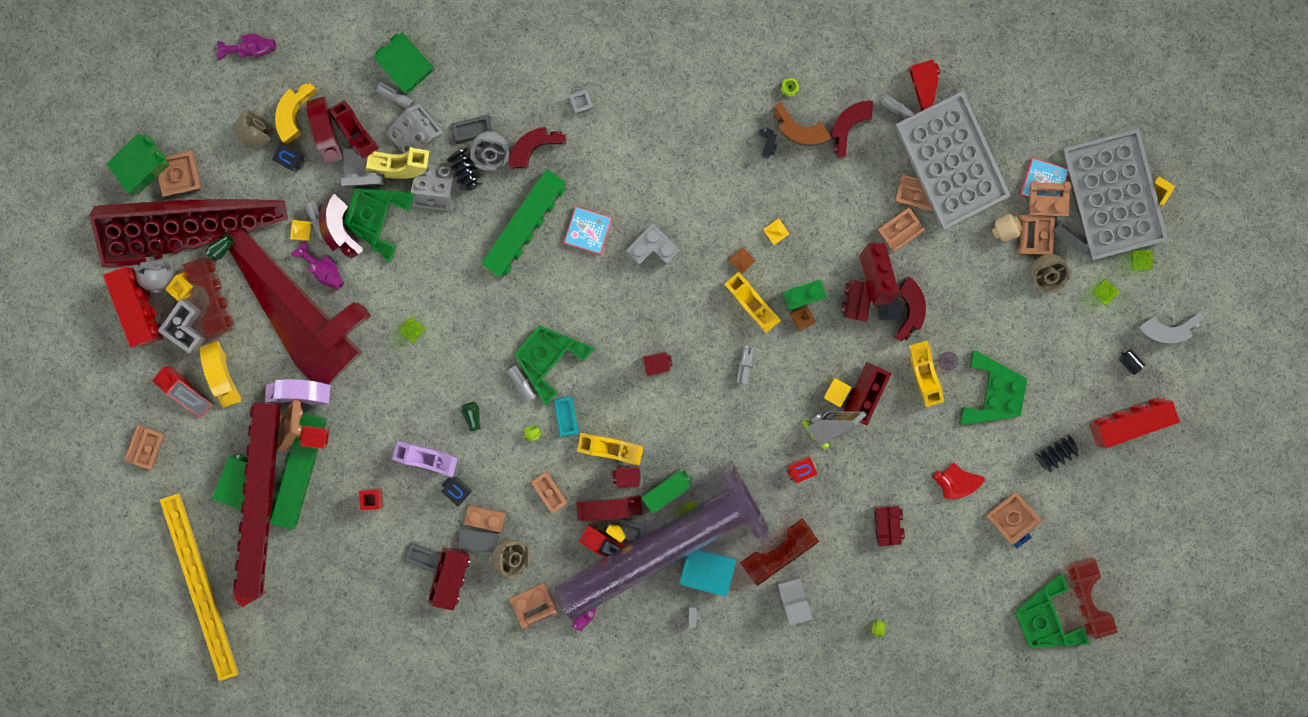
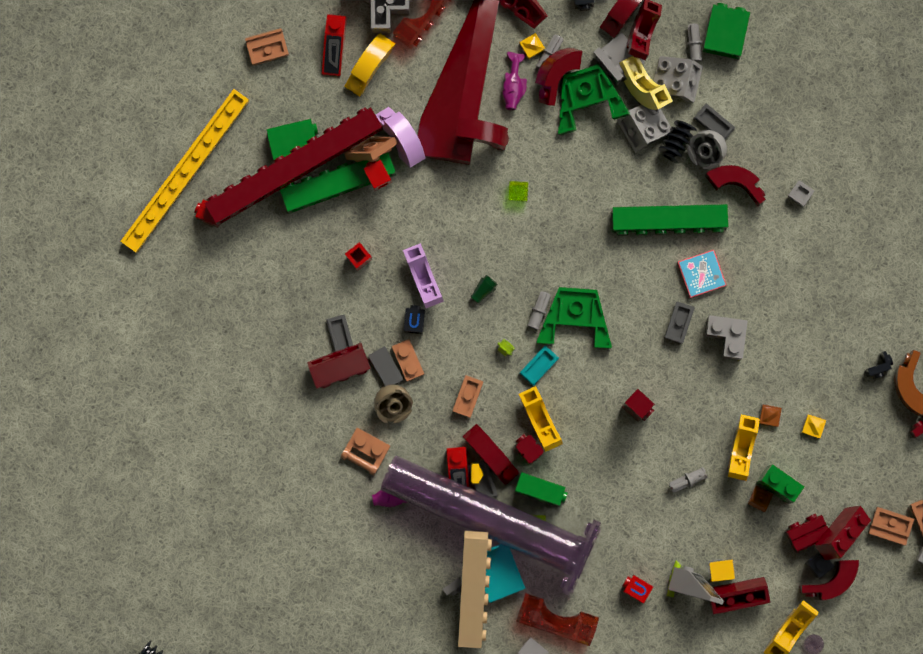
camera: 55 degrees right, 5 degrees down
(614, 278) = (679, 322): none -> dark grey plate
(706, 604) = (473, 589): none -> tan brick

